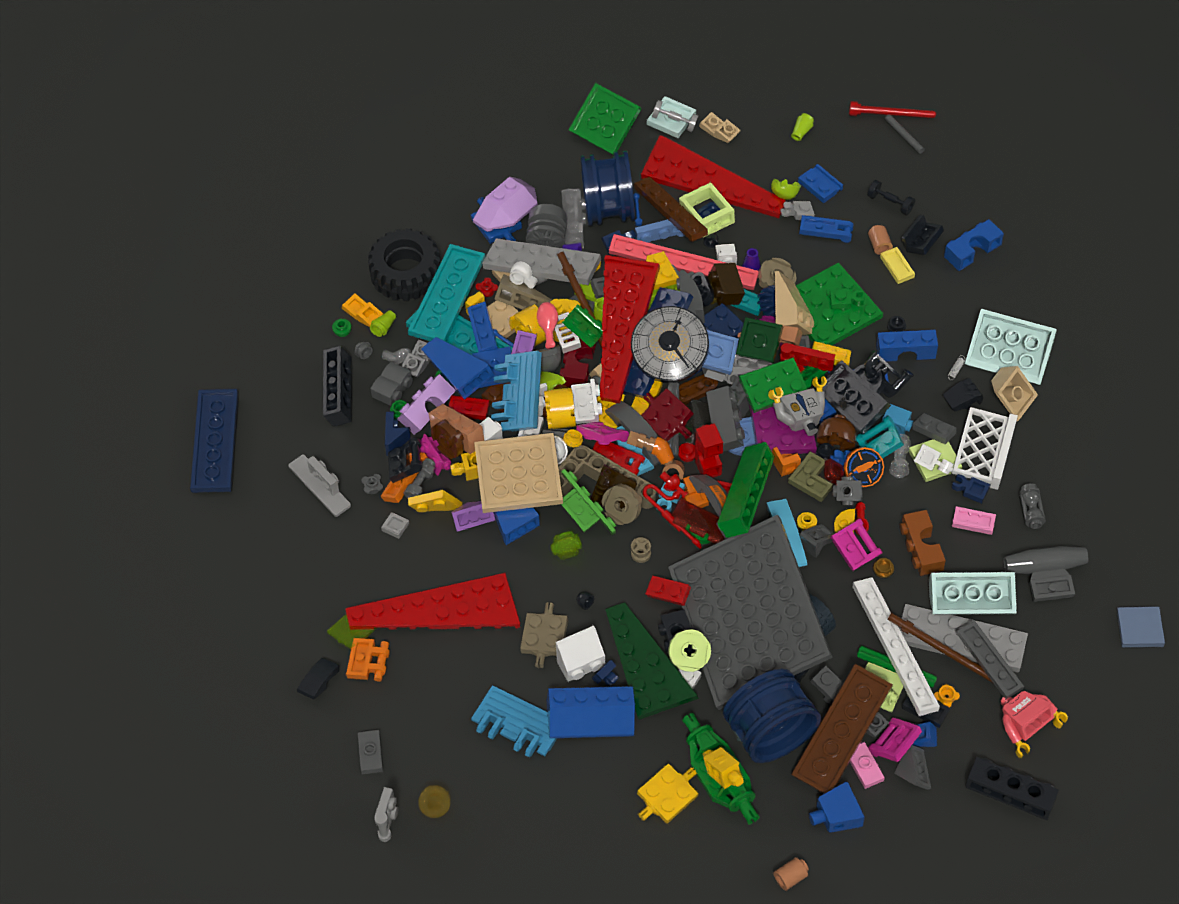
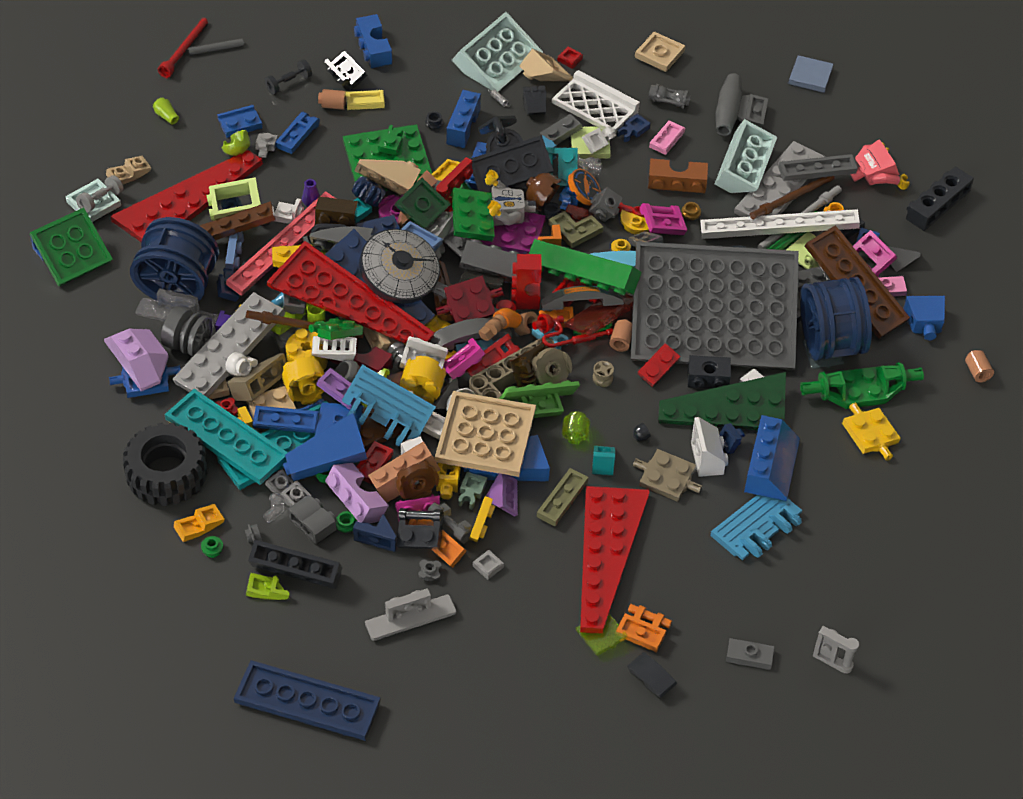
camera: 75 degrees left, 5 degrees down
(314, 376) = (265, 588): none -> lime slope
(381, 325) = (229, 508): lime cone -> none
(434, 801) = (828, 609): clear yellow plate -> none
(468, 488) = (472, 488): none -> sand green plate
(486, 558) = (562, 497): none -> olive plate
(542, 576) = (603, 460): none -> teal slope
(547, 319) = (318, 353): coral piece -> none
(573, 438) = (461, 381): yellow plate -> none
(690, 548) = (621, 335): none -> nougat brick
(696, 660) = (739, 371): yellowish green plate -> none
(722, 767) = (871, 372): yellow piece -> none
(768, 268) = (336, 182): dark tan plate -> none
(960, 682) = (824, 199): none -> light grey bar
(1045, 409) = (570, 57): none -> red tile
(1094, 481) = (660, 51): none -> tan plate

